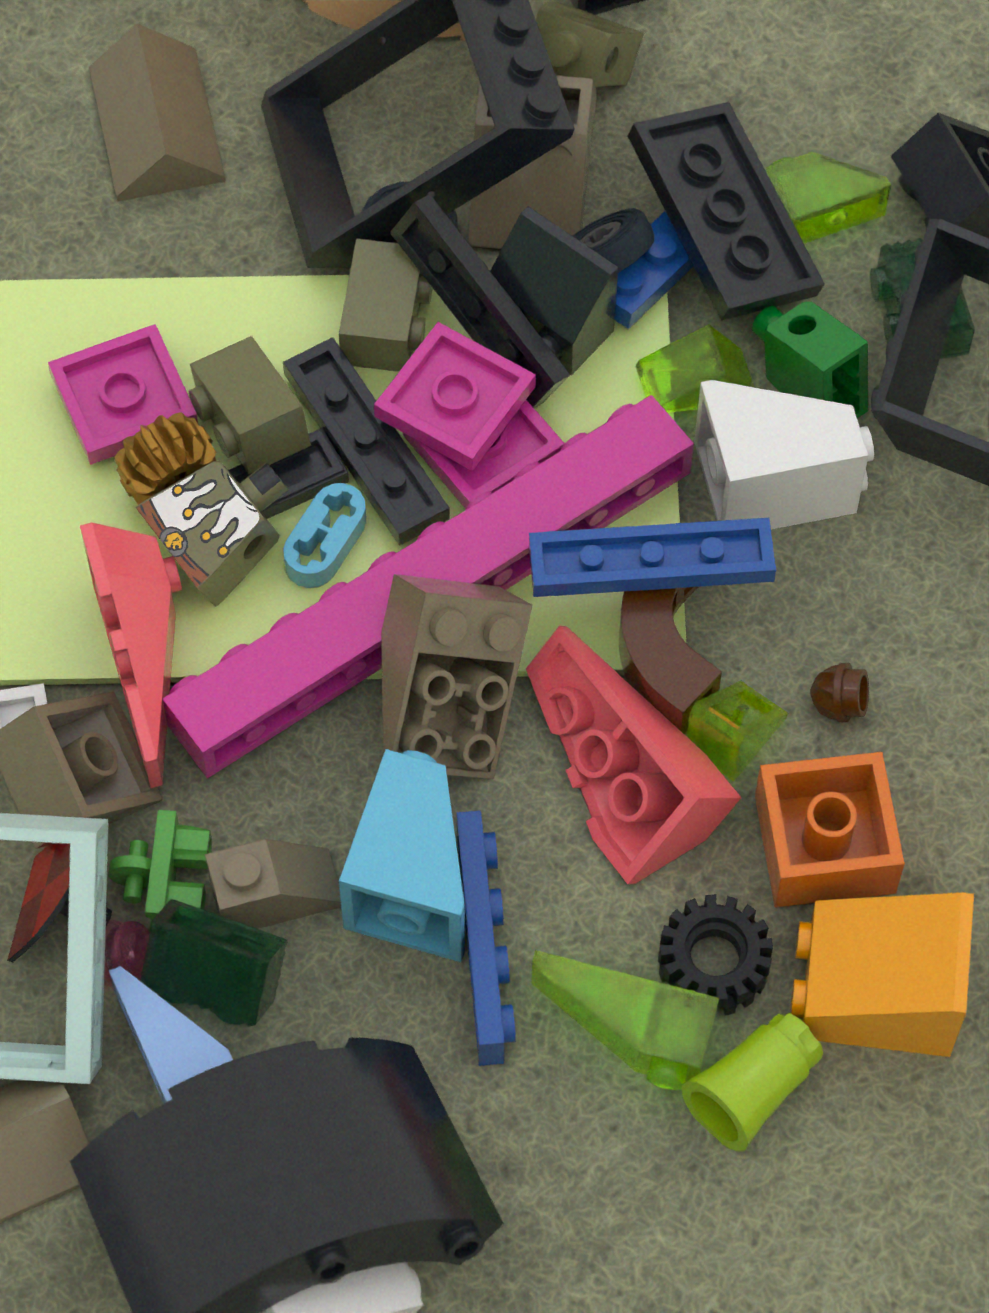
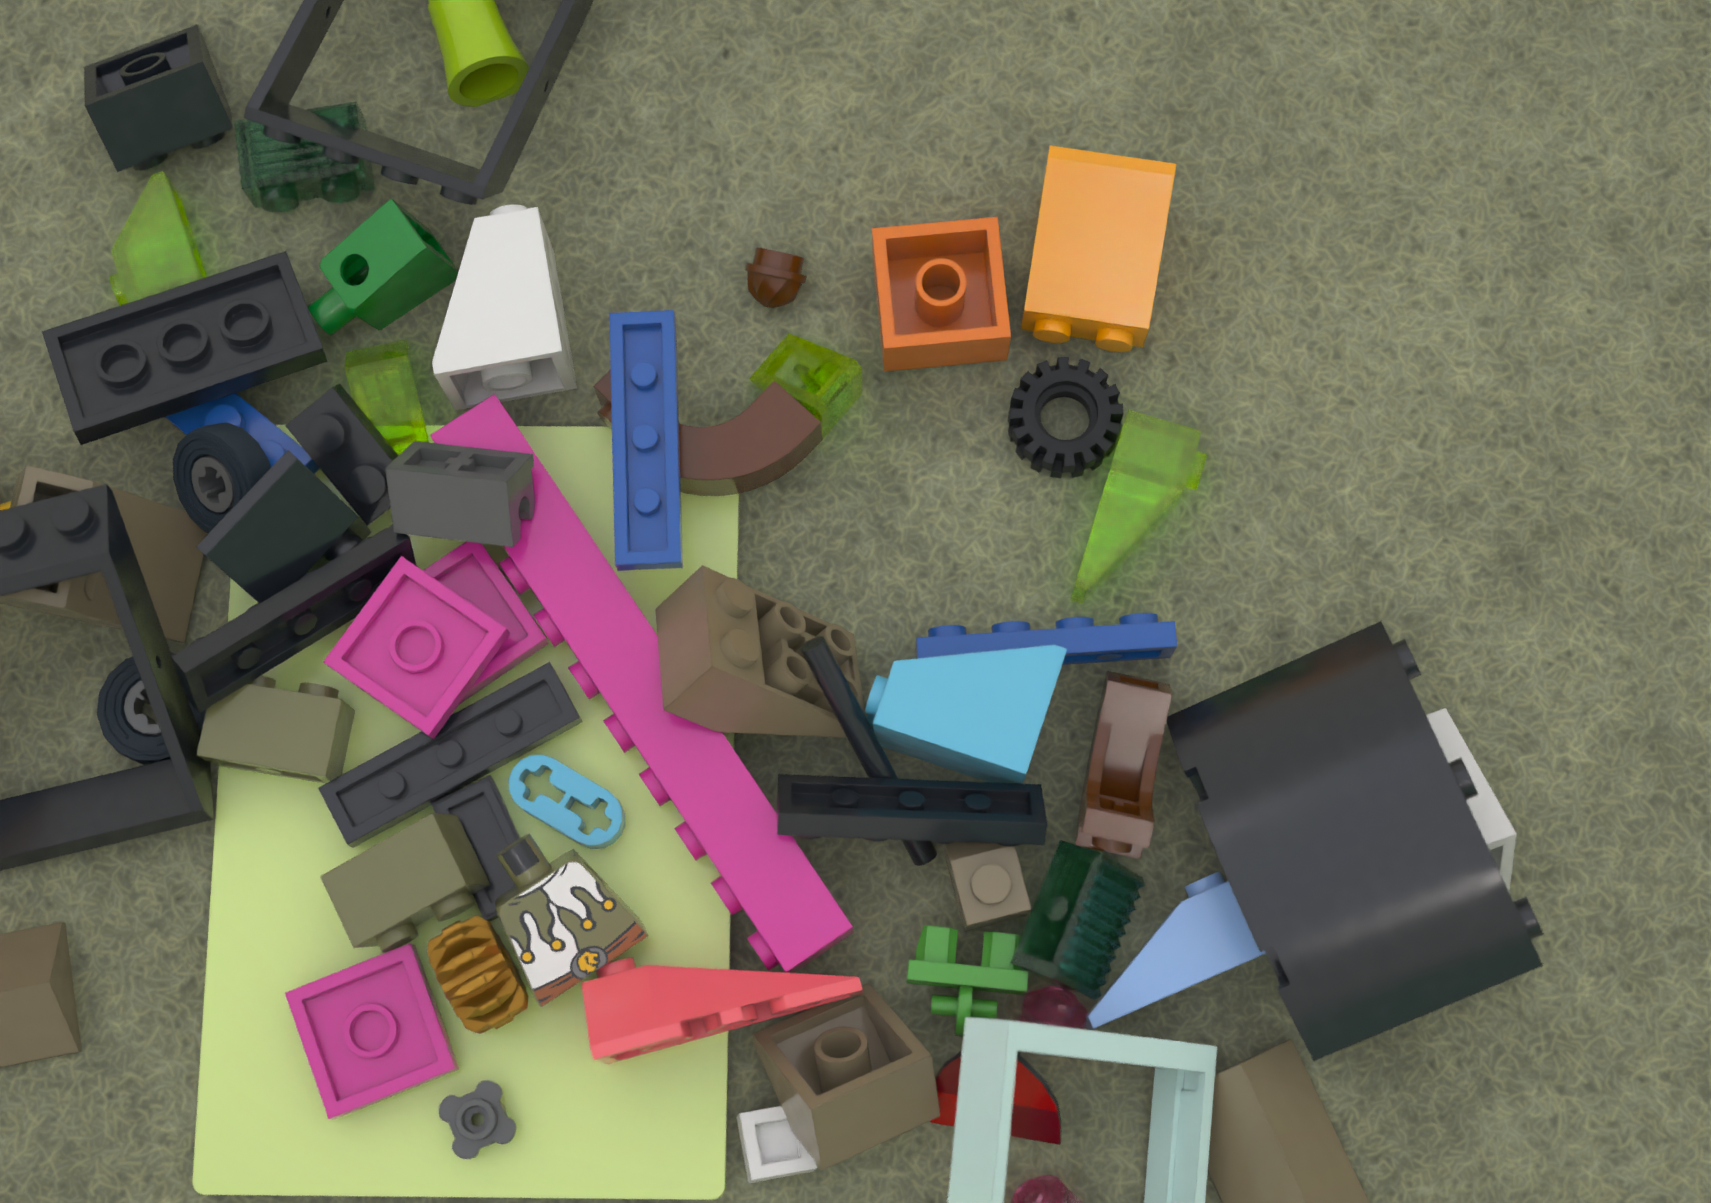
camera: 85 degrees left, 15 degrees up
(49, 492) = (496, 1124): none -> dark grey plate
(311, 799) = (910, 810): none -> black plate
(354, 1001) = (1123, 766): none -> reddish brown arch
(367, 766) = (856, 727): none -> black bar
(595, 413) = (461, 493): none -> dark grey hinge
(634, 344) = (347, 451): none -> black plate
(638, 773) = (857, 485): coral wedge -> none
(752, 1080) = (1201, 386): lime plant -> none

